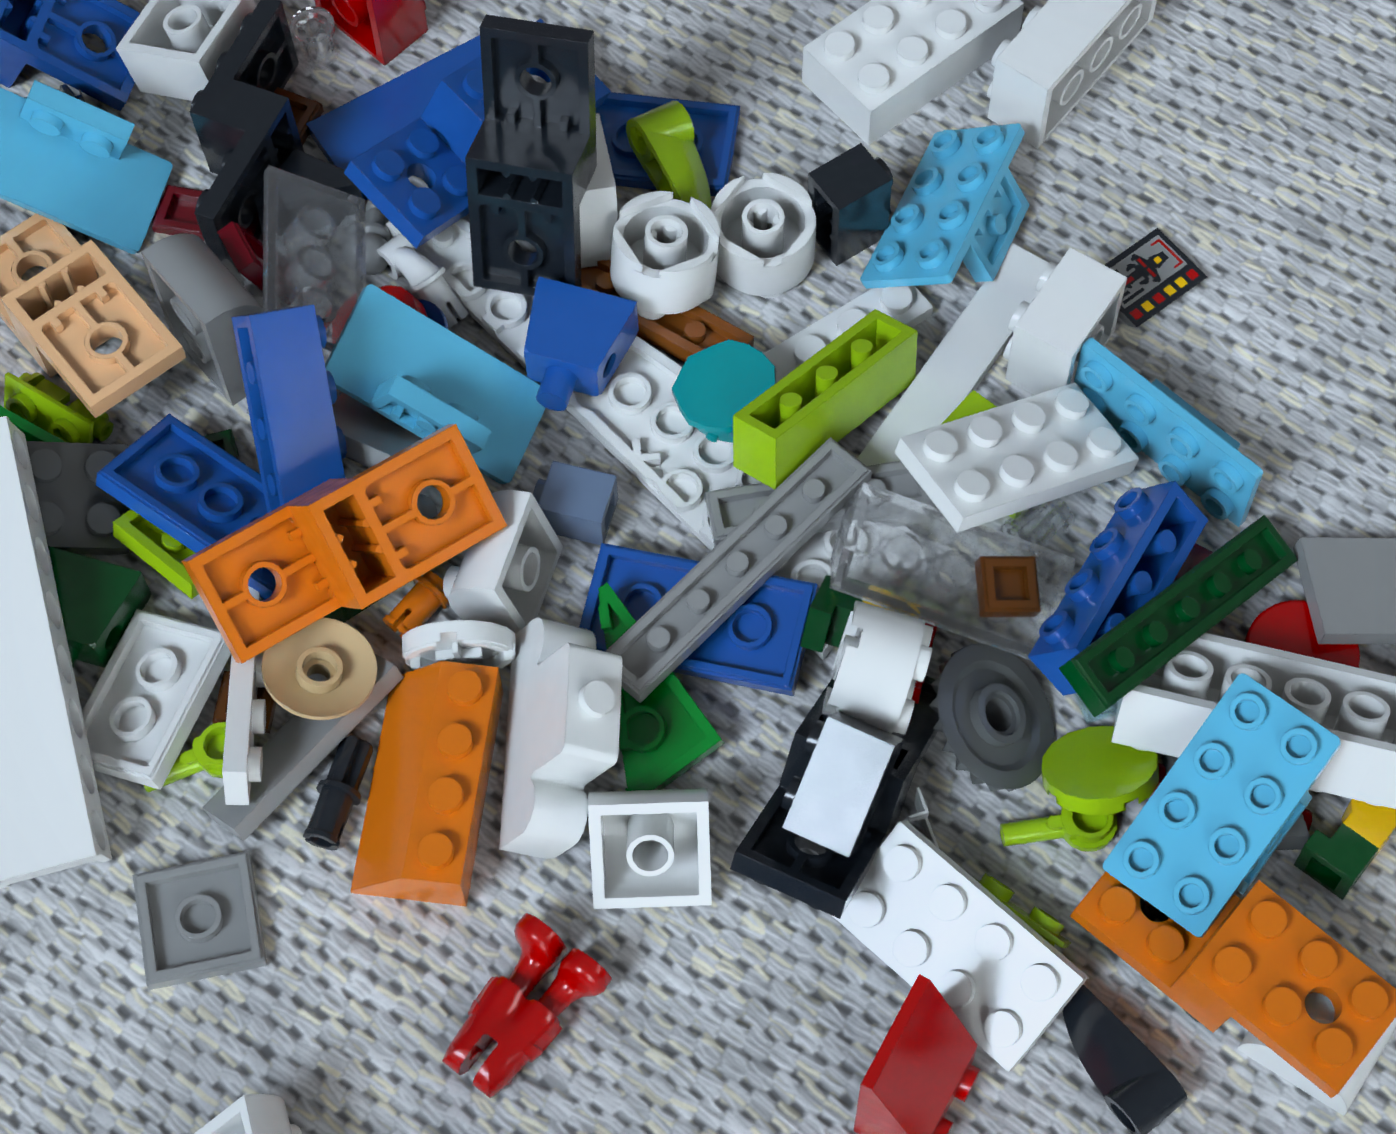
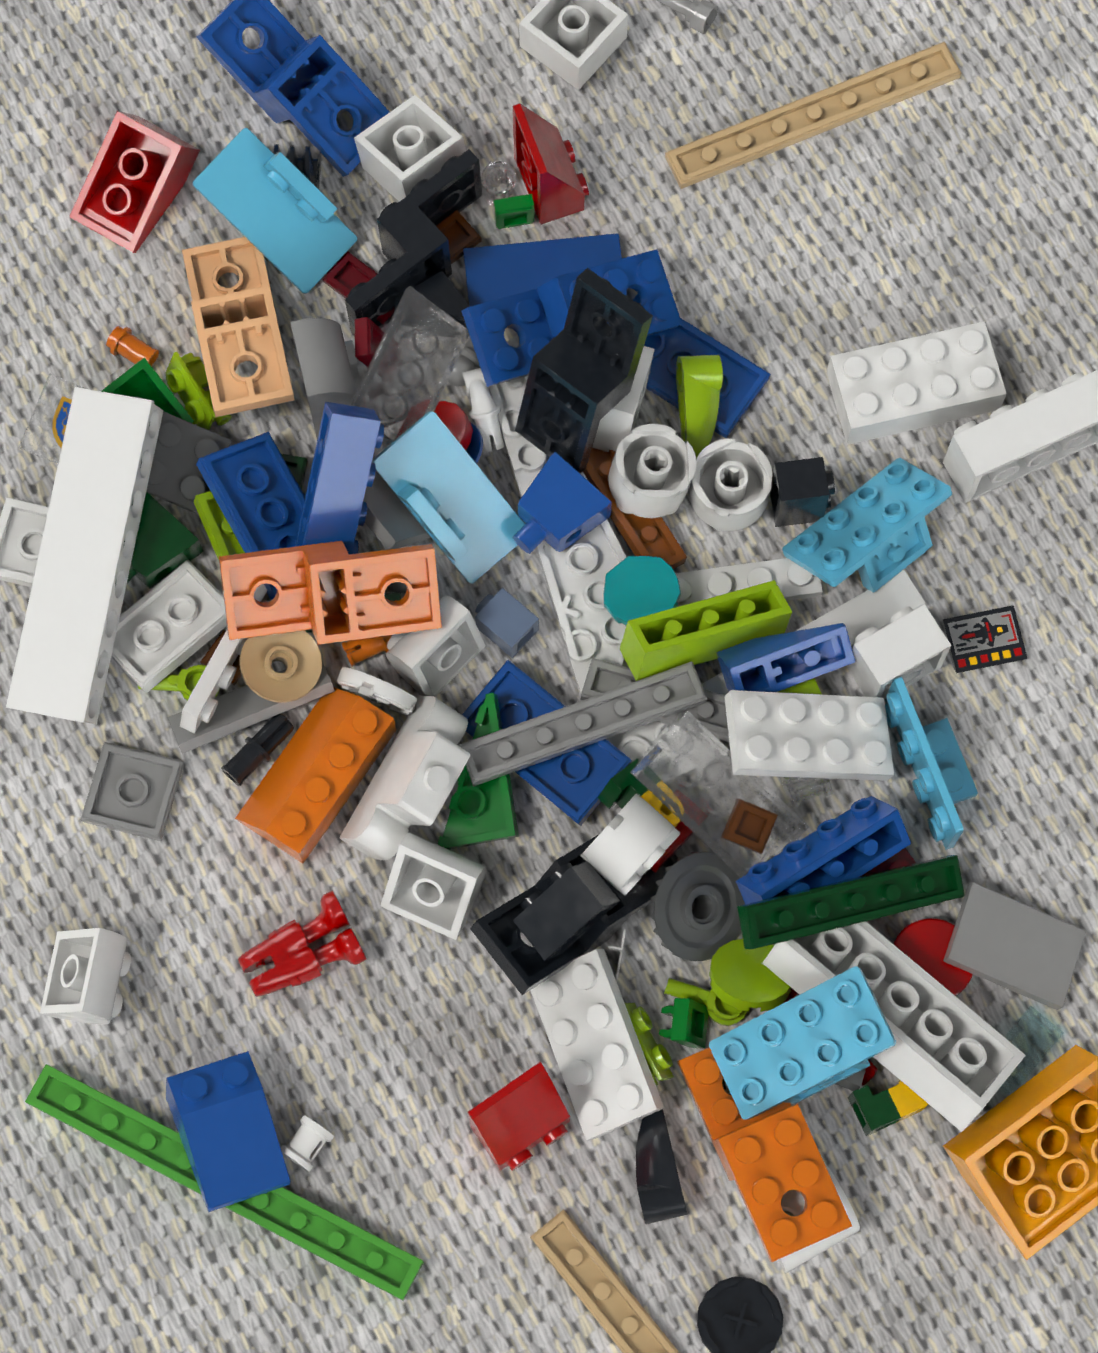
camera: 25 degrees right, 10 degrees up
(347, 58) = (513, 211): none -> green tile
(938, 384) = (785, 658): none -> blue slope
(1057, 867) = (688, 1023): none -> green tile

